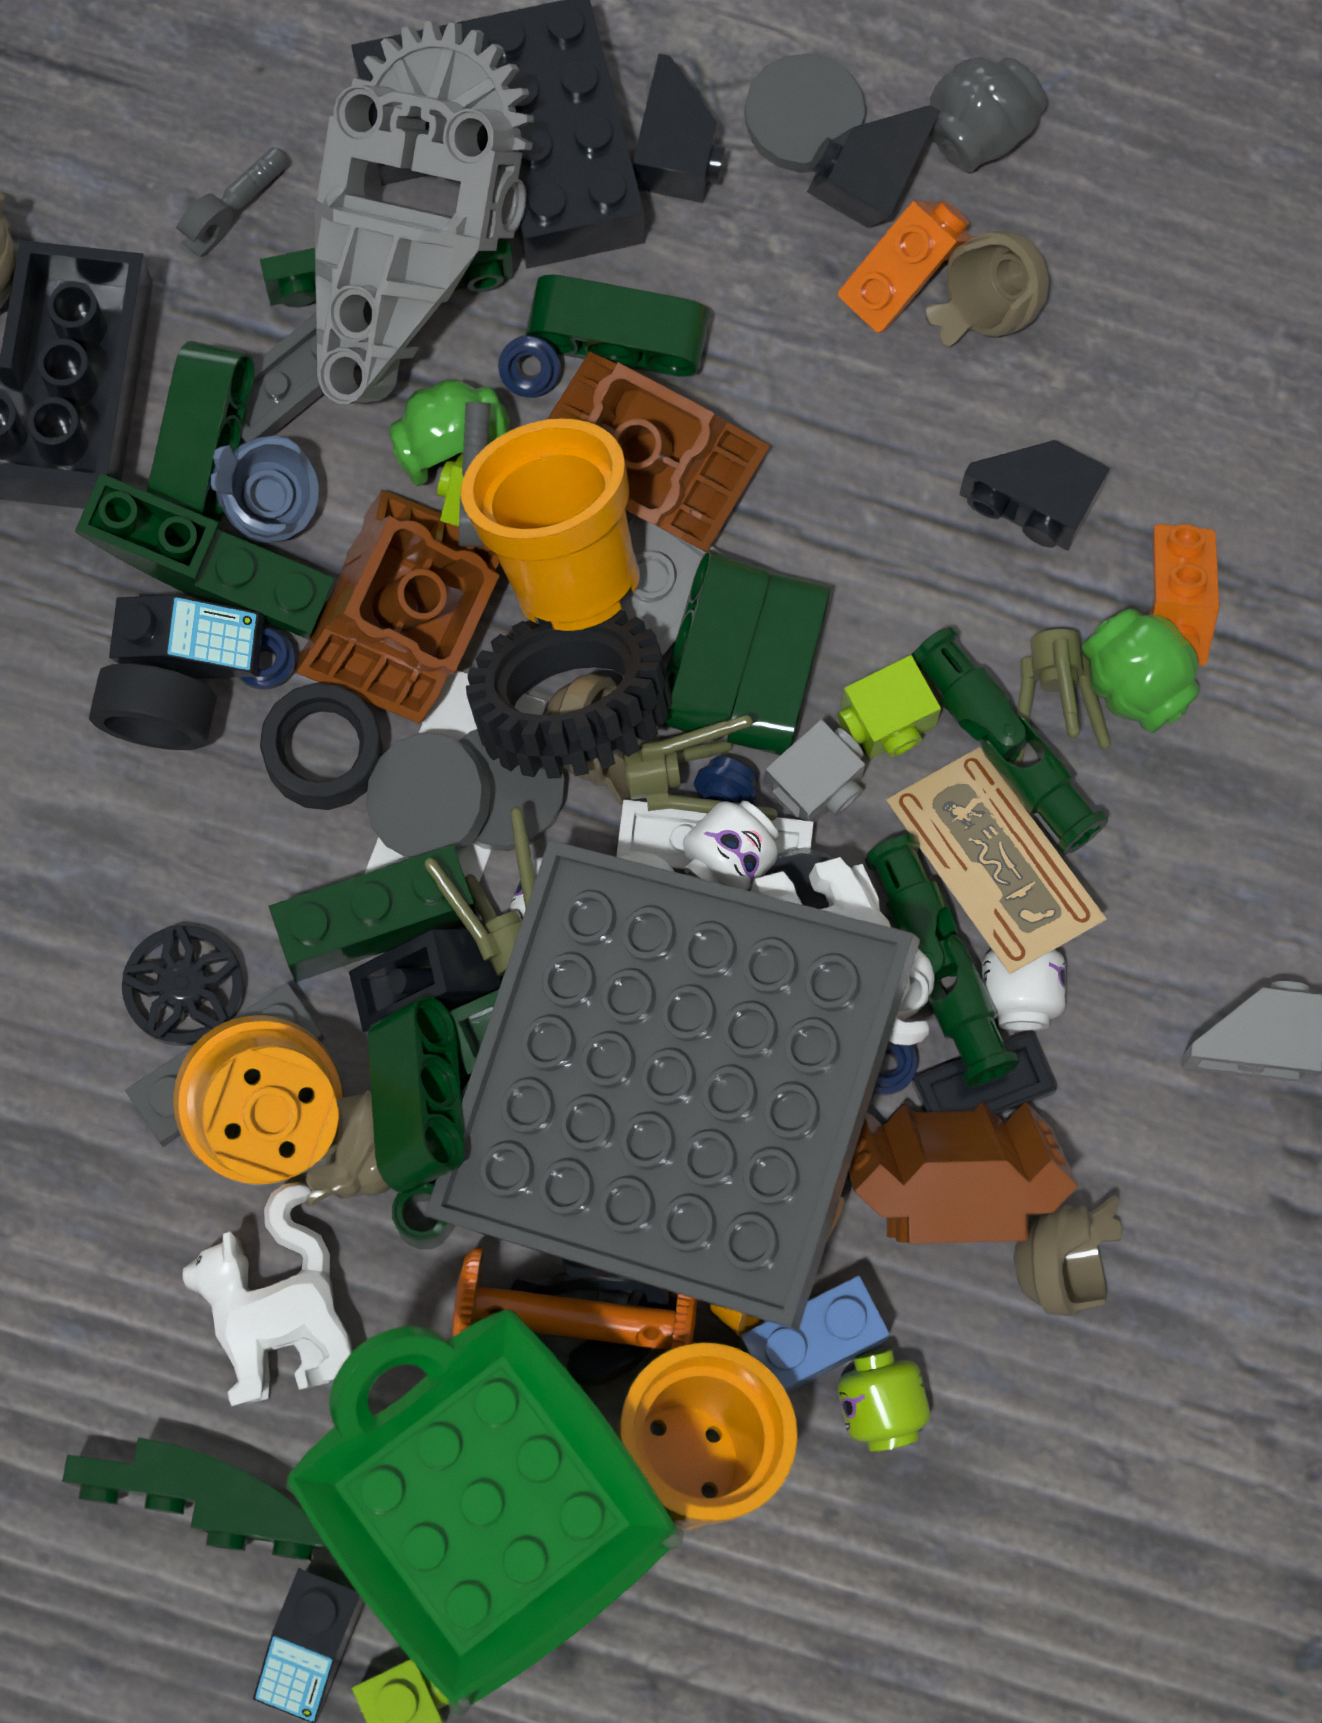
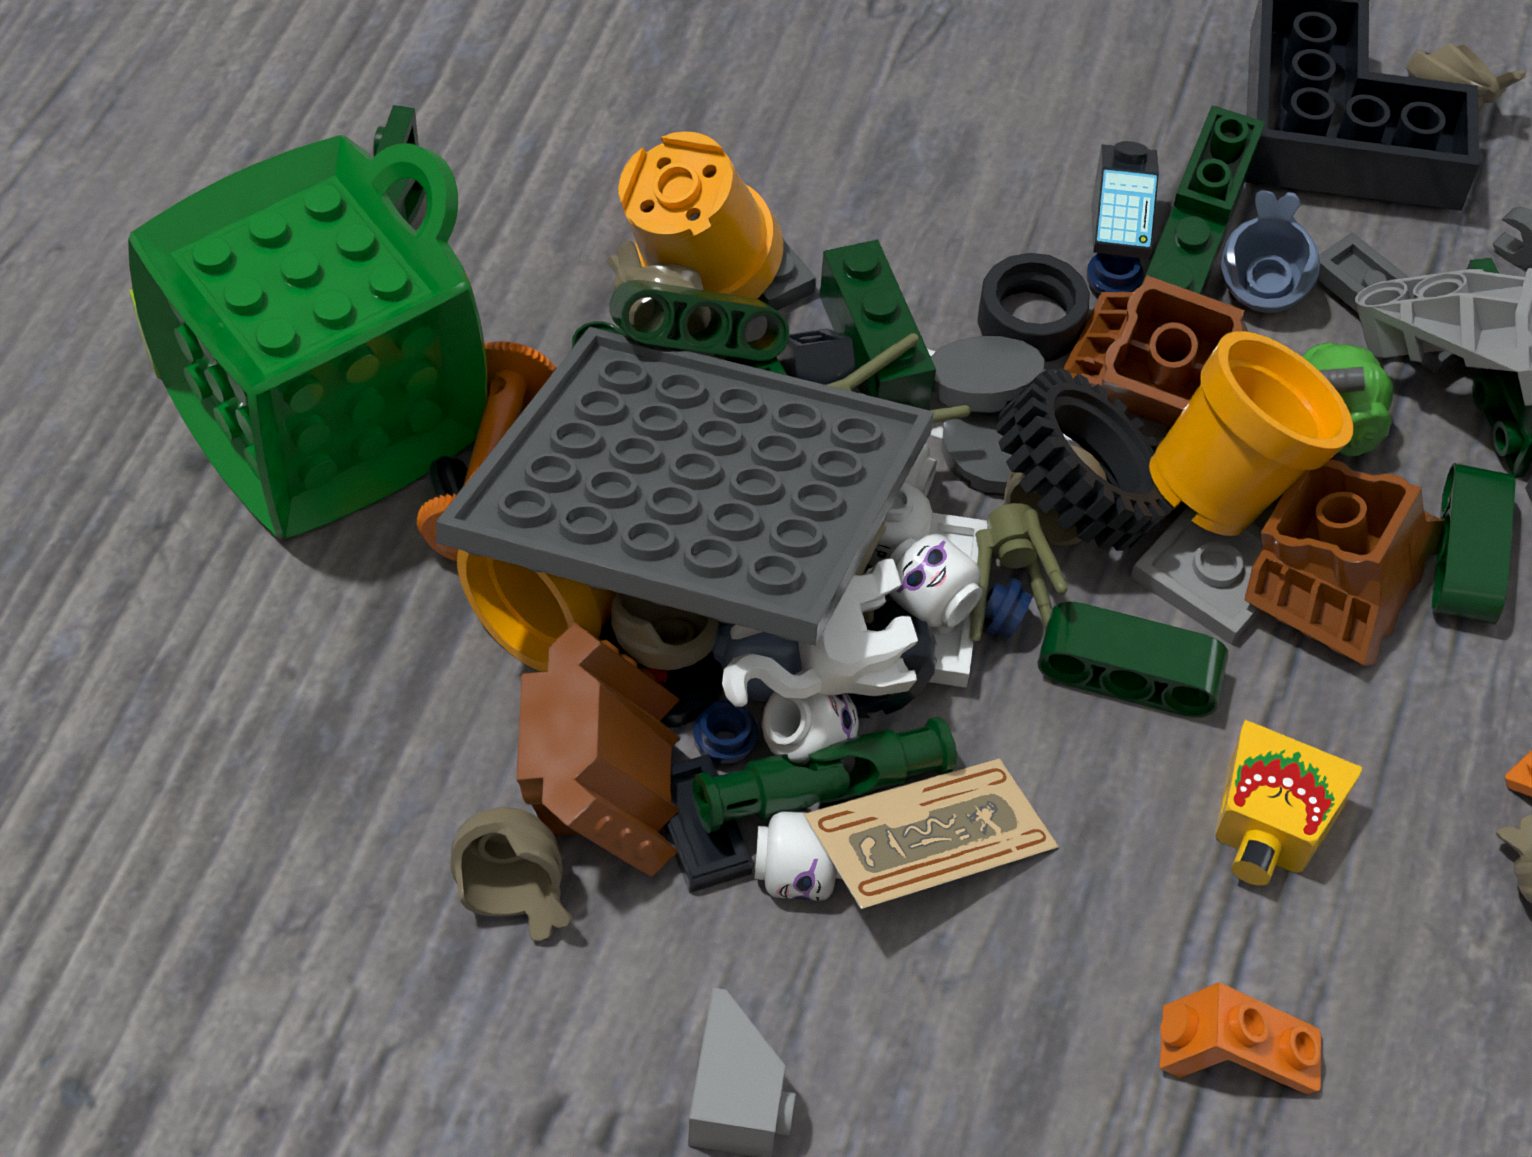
camera: 90 degrees right, 20 degrees down
(152, 707) = (1060, 178): black tyre -> none
(181, 984) = (818, 214): black wheel -> none
(201, 414) = (1342, 210): dark green beam -> none
(281, 1315) = (517, 245): white animal -> none
(516, 379) = (1423, 467): dark blue plate -> none
(699, 1391) = (369, 472): light orange piece -> none
(714, 641) = (1151, 589): dark green beam -> none
(817, 774) = (1019, 682): light grey brick -> none
(830, 1335) = (453, 645): medium blue brick -> none
(883, 1400) = (387, 703): lime head -> none
(889, 709) = (1091, 750): lime brick -> none
(936, 538) = (1279, 801): none -> yellow torso
(986, 715) = (1094, 834): dark green piece -> none
(1037, 488) = (1345, 909): black slope -> none
(1060, 667) = (1147, 910): olive plant -> none
(1142, 668) = (1143, 980): bright green hair -> none

